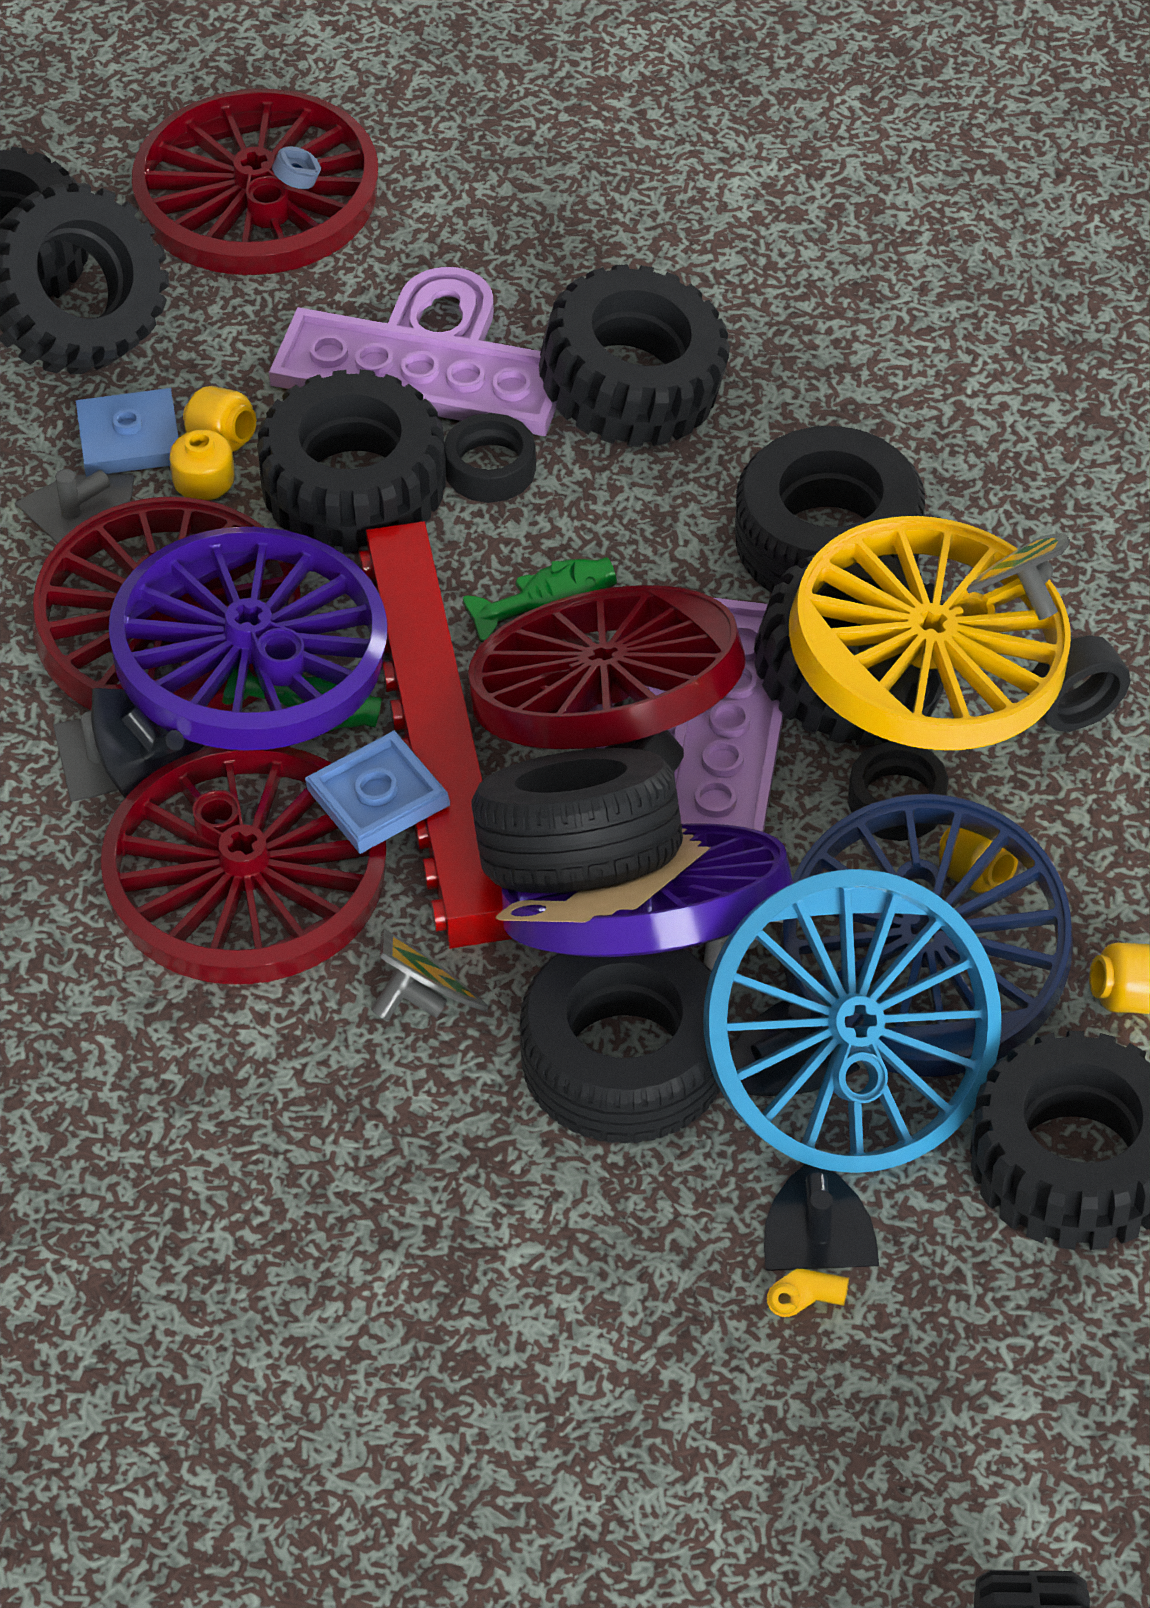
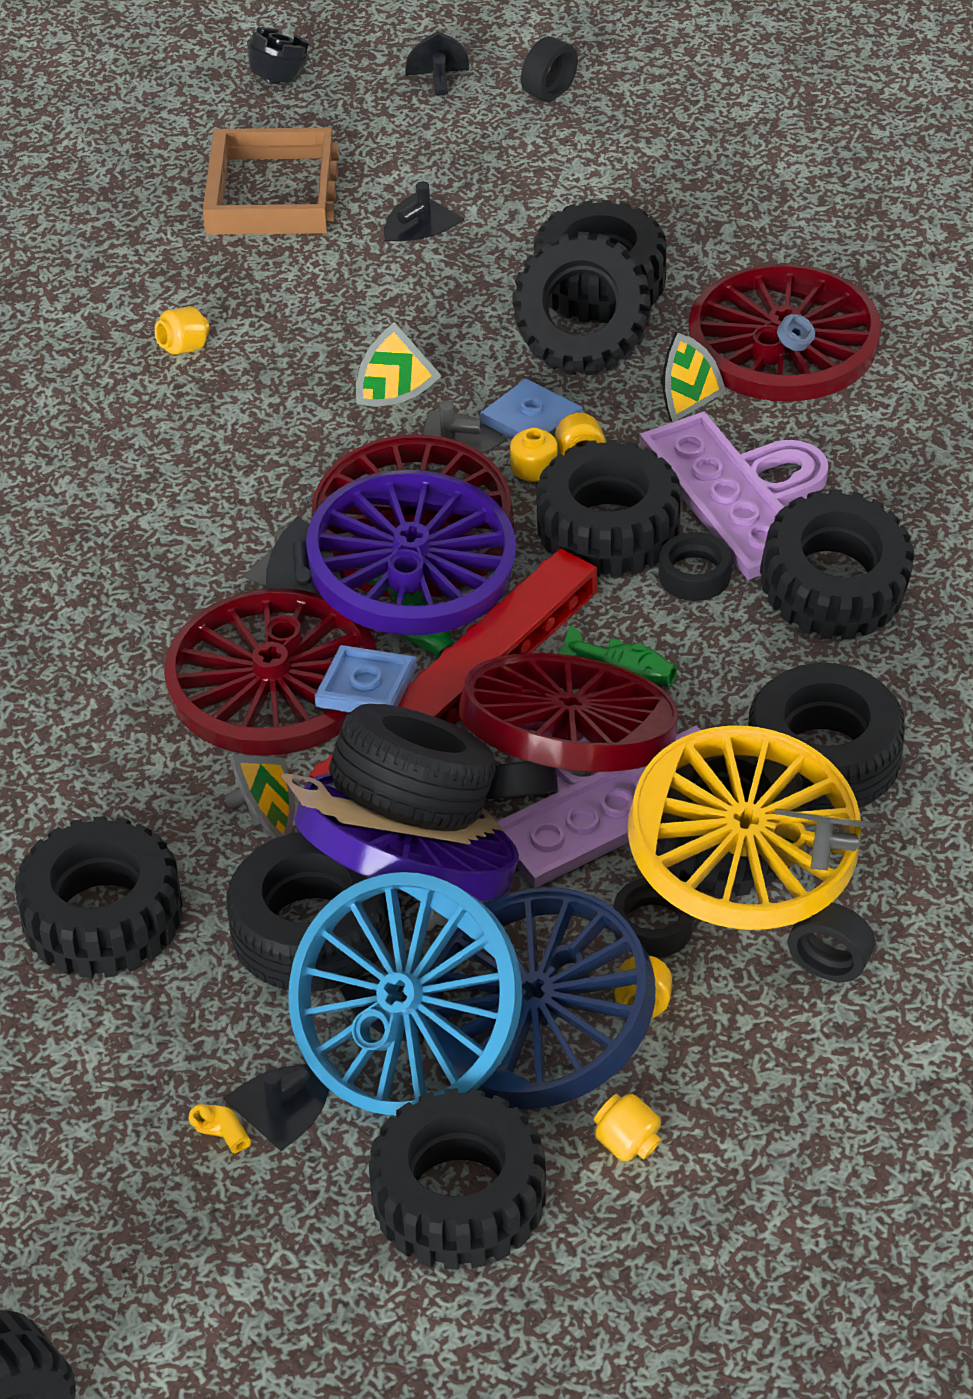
camera: 50 degrees right, 5 degrees down
(240, 283) = (689, 377): none -> shield
(428, 1254) = (104, 936): none -> black tyre

